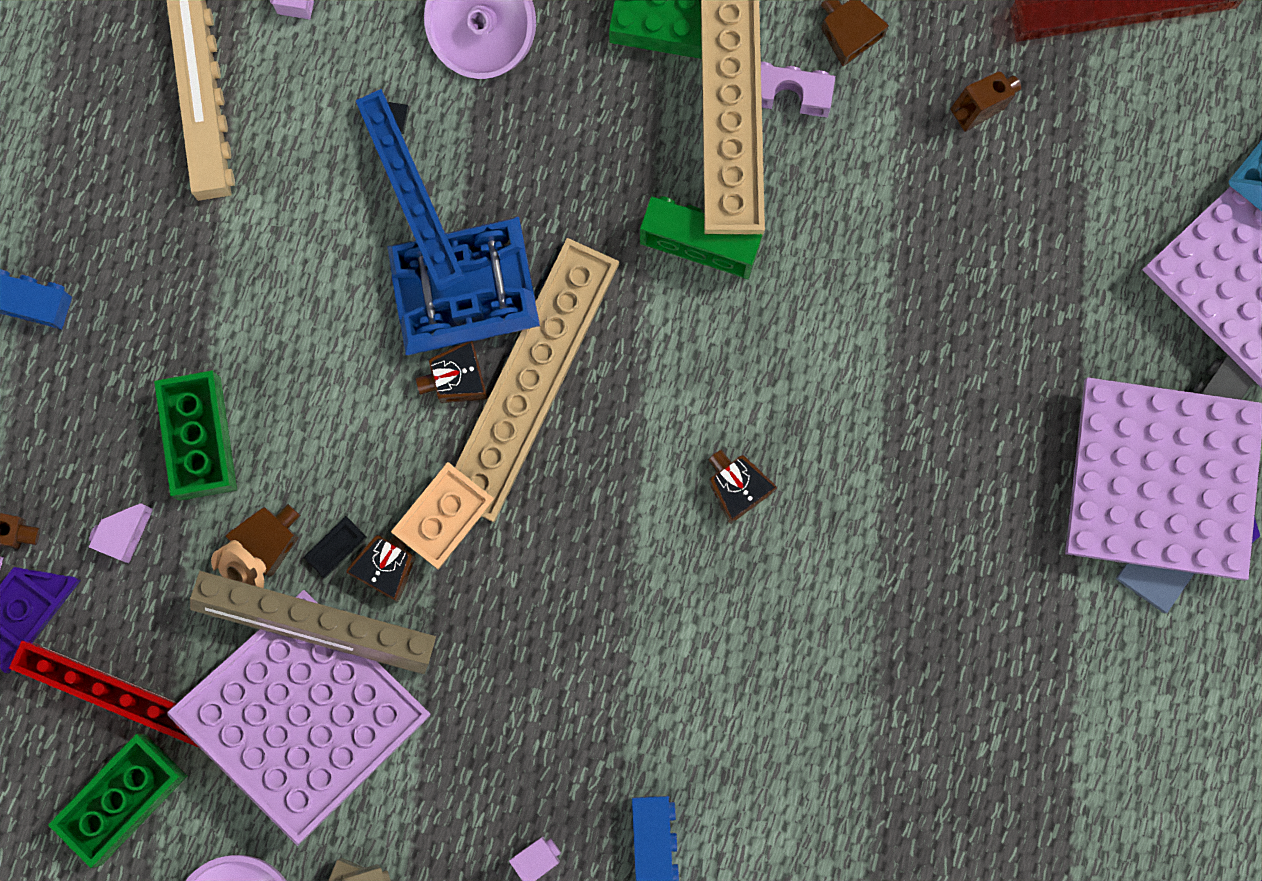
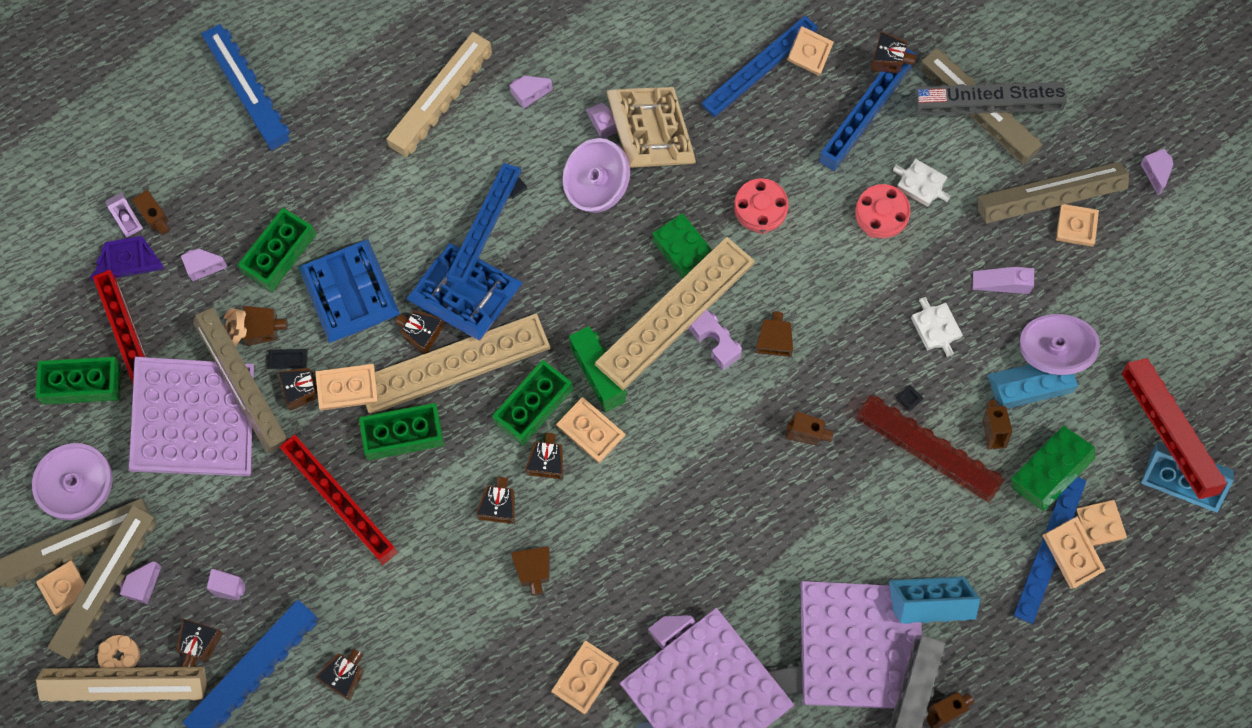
camera: 45 degrees right, 10 degrees down
(328, 406) = (349, 291): none -> blue piece
(554, 506) = (401, 431): none -> green brick
(560, 647) = (338, 500): none -> red brick
(666, 340) = (532, 402): none -> green brick
(741, 387) = (546, 459): none -> torso
(755, 312) = (590, 430): none -> light nougat plate
(760, 829) = (342, 674): none -> torso
(847, 520) = (533, 568): none -> reddish brown torso
(1016, 582) = (585, 677): none -> light nougat plate
(1058, 446) = (670, 628): none -> lavender slope

